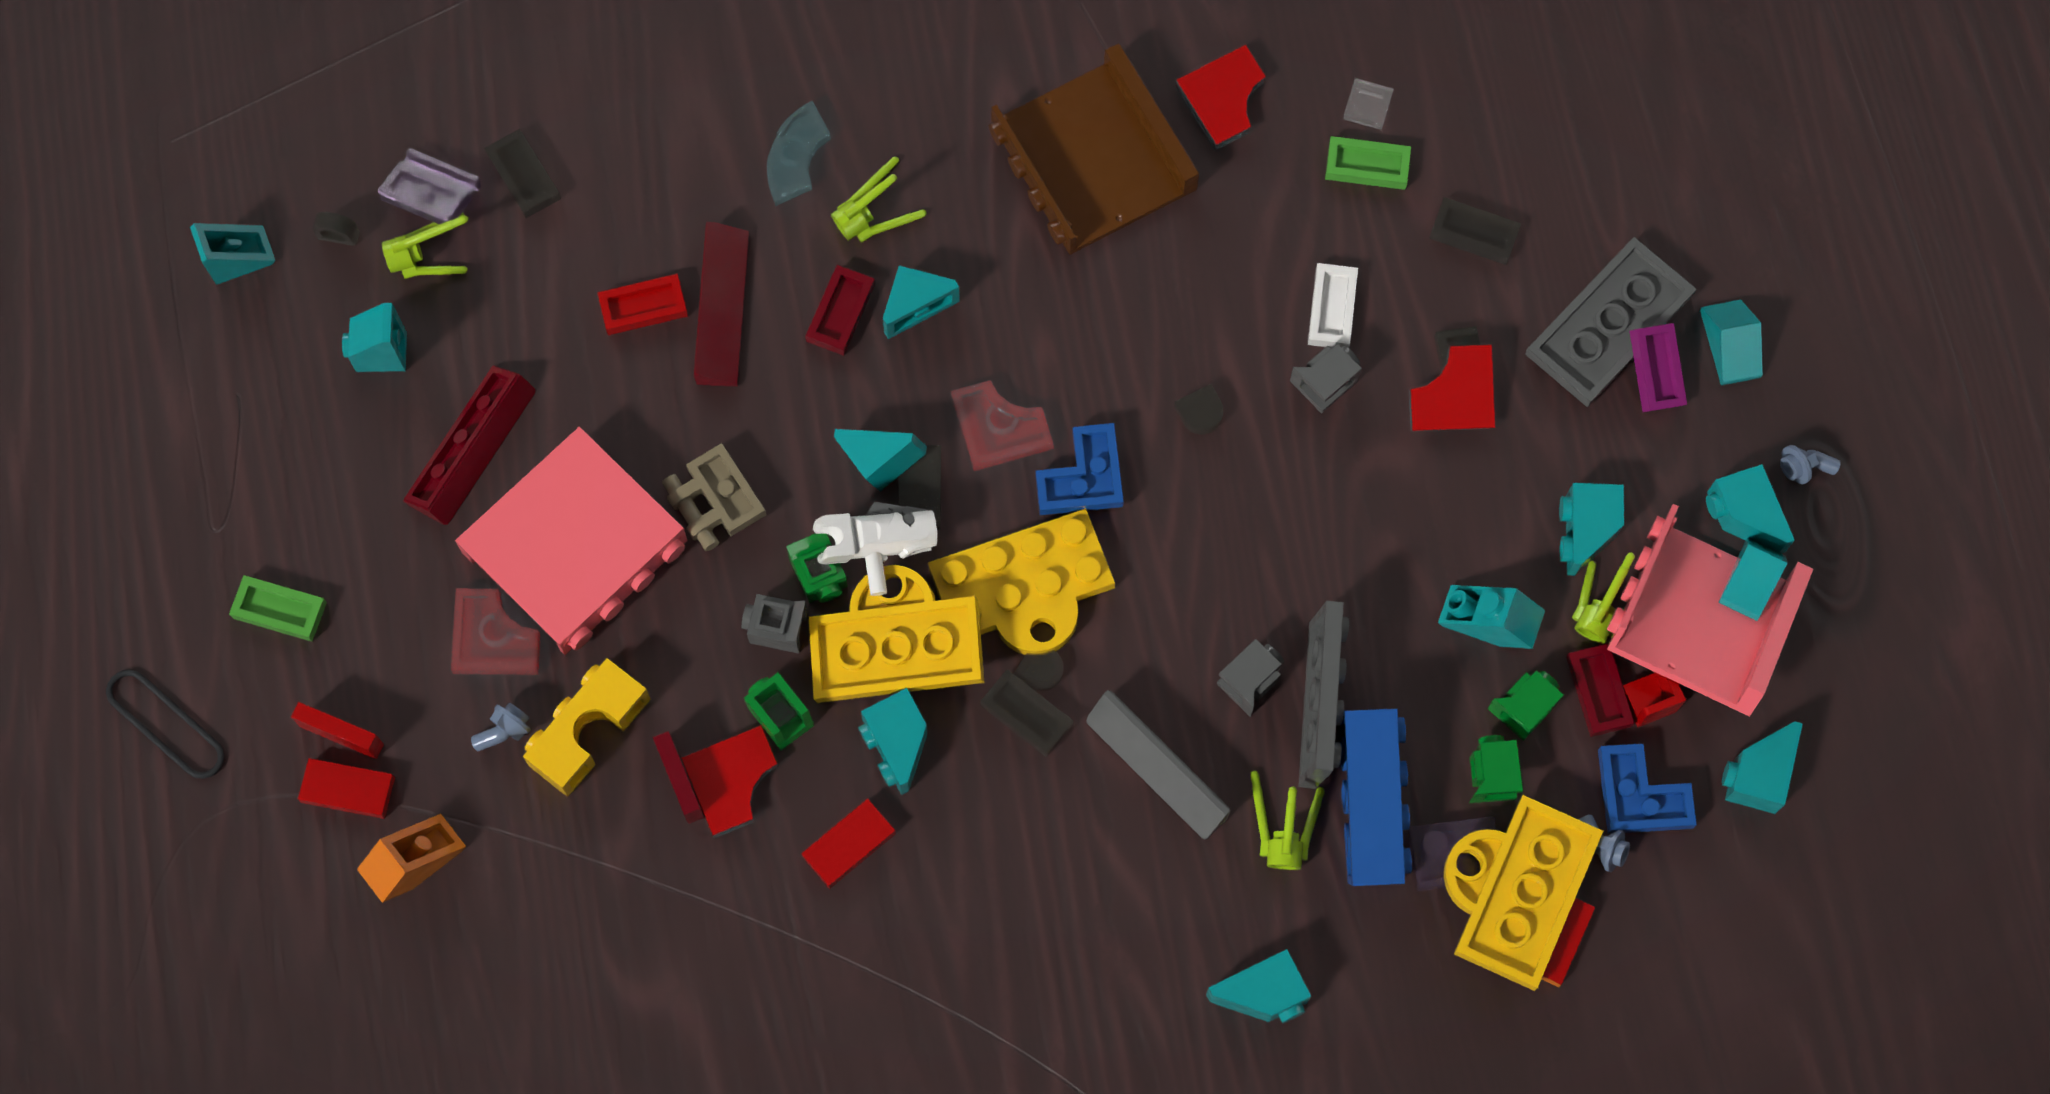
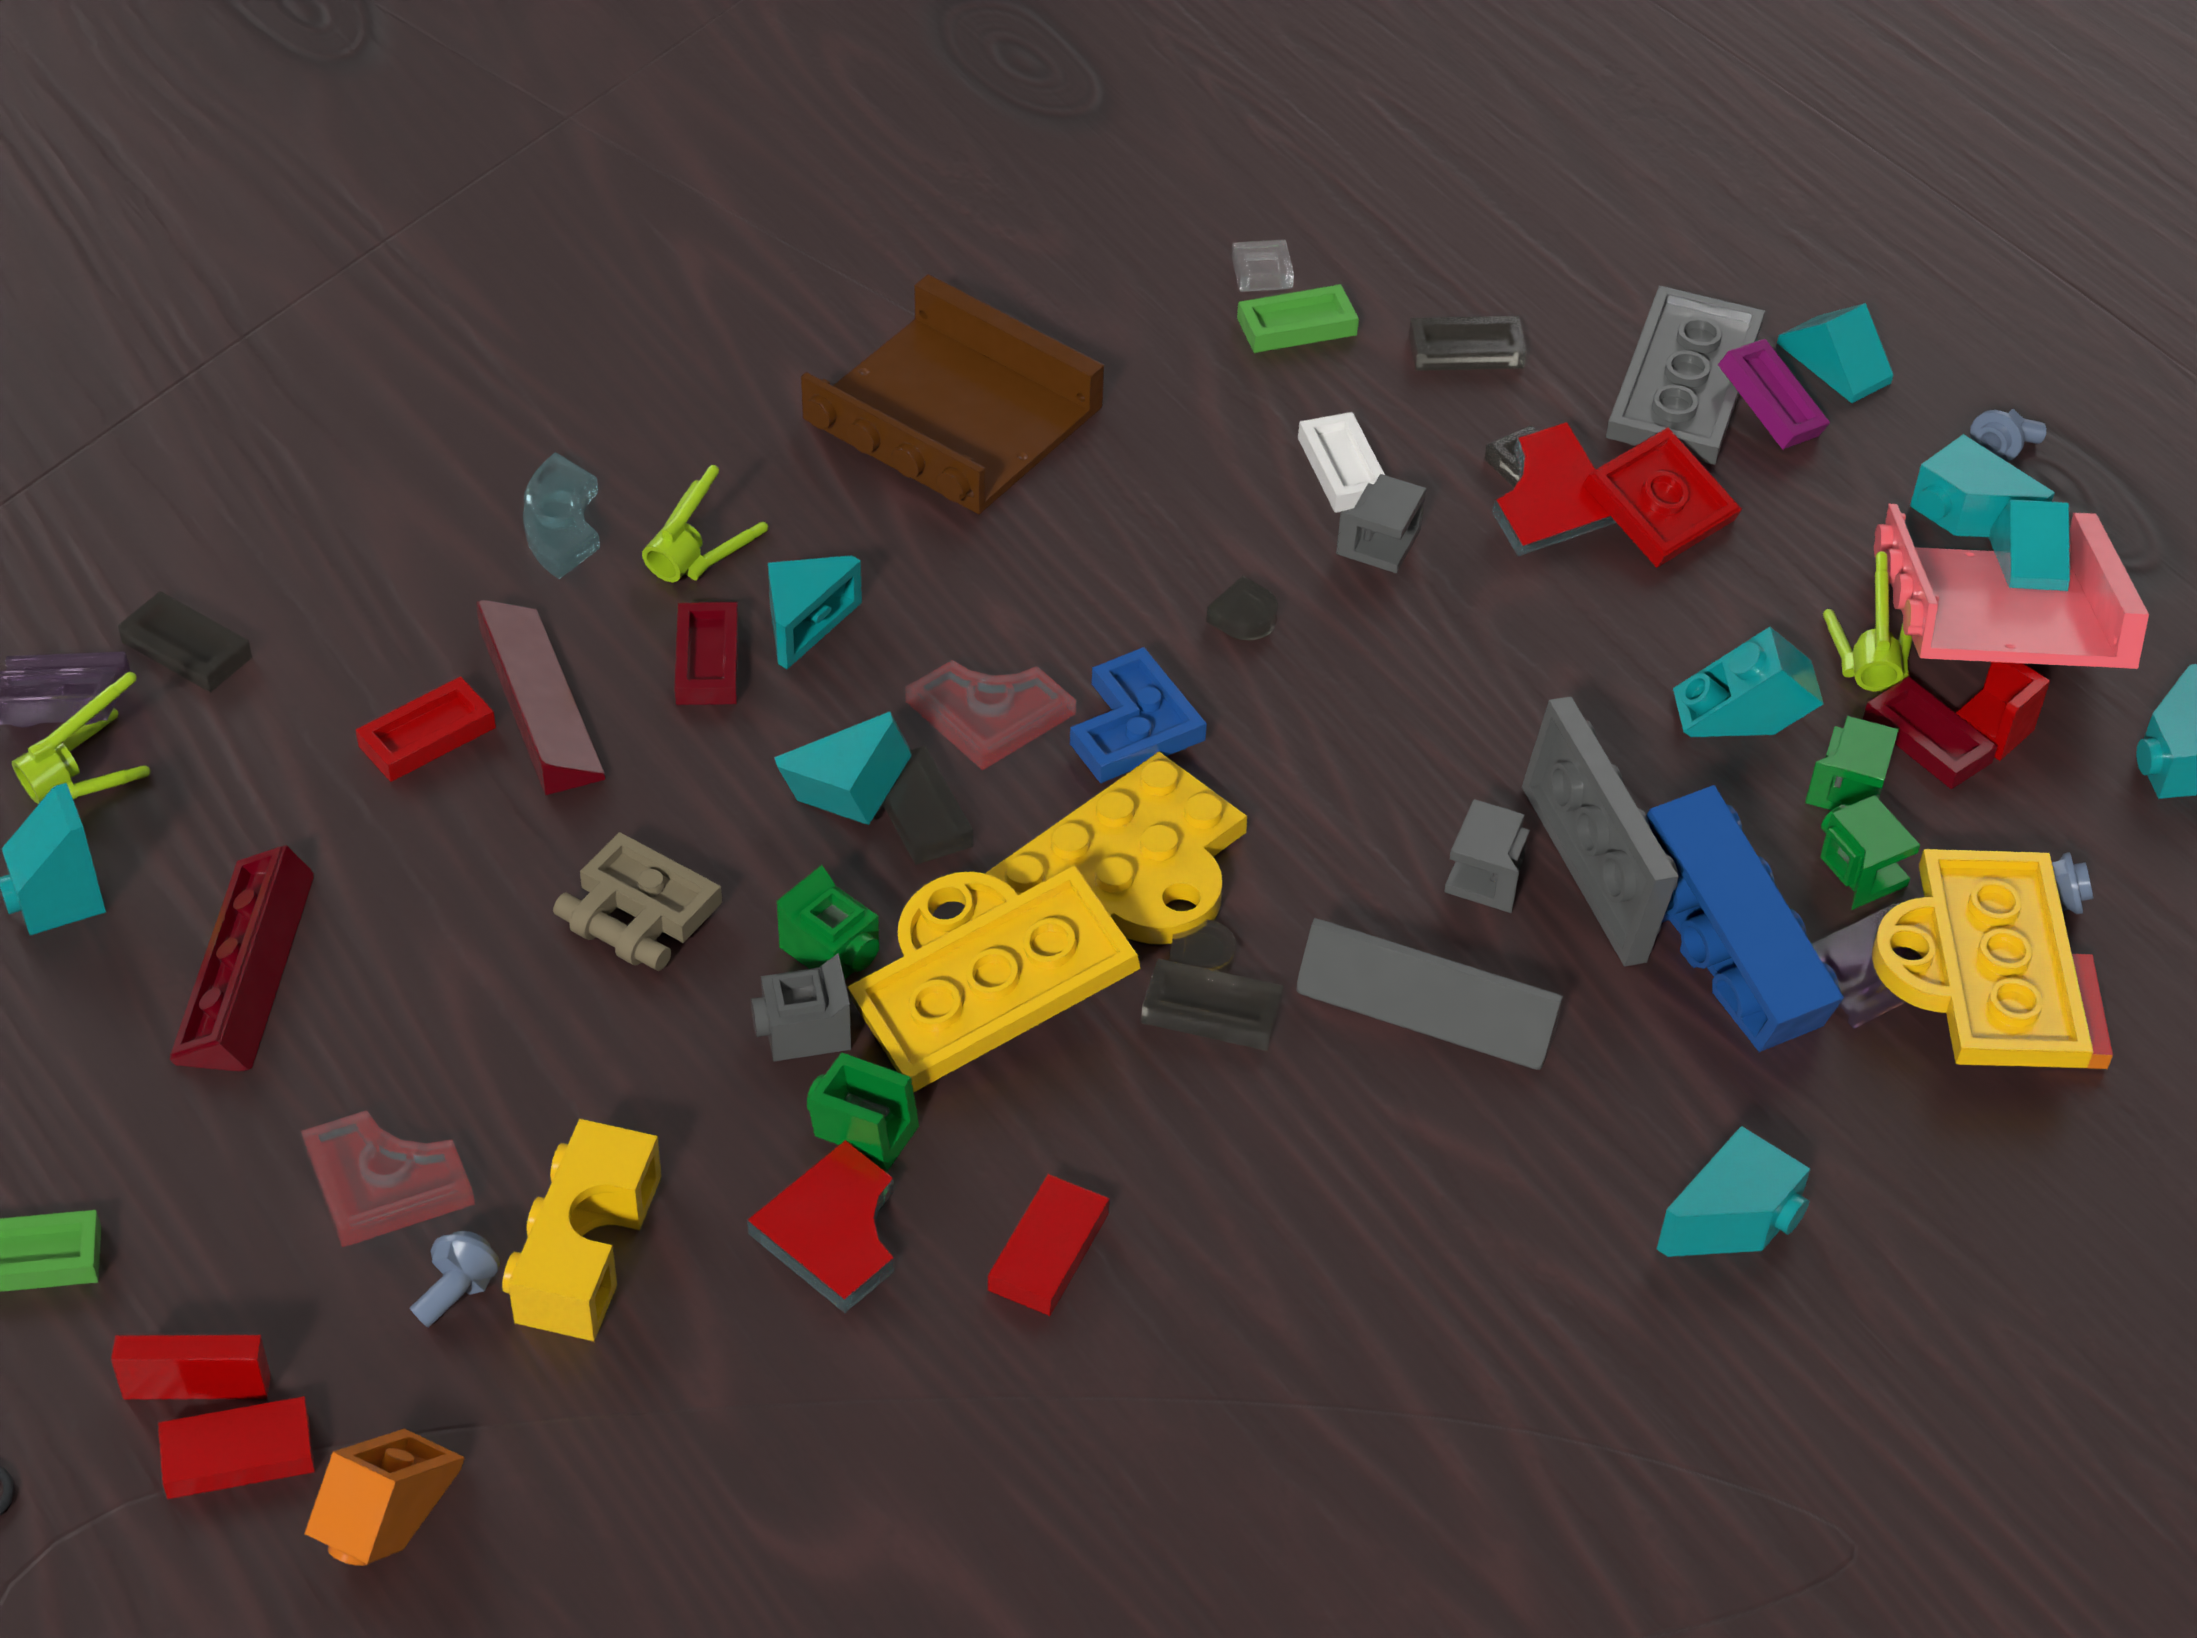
camera: 25 degrees left, 25 degrees down
(573, 540) = (457, 1006): coral panel -> none
(678, 777) = (756, 1242): dark red tile -> none
(878, 534) = (898, 846): white piece -> none
(899, 736) = (1048, 1083): teal slope -> none
(1221, 93) = (1080, 306): red tile -> none
(1285, 849) = (1655, 1025): lime plant -> none
(1529, 427) = (1662, 497): none -> red tile
(1592, 522) = (1798, 561): teal slope -> none
(1634, 804) = (2048, 823): blue plate -> none

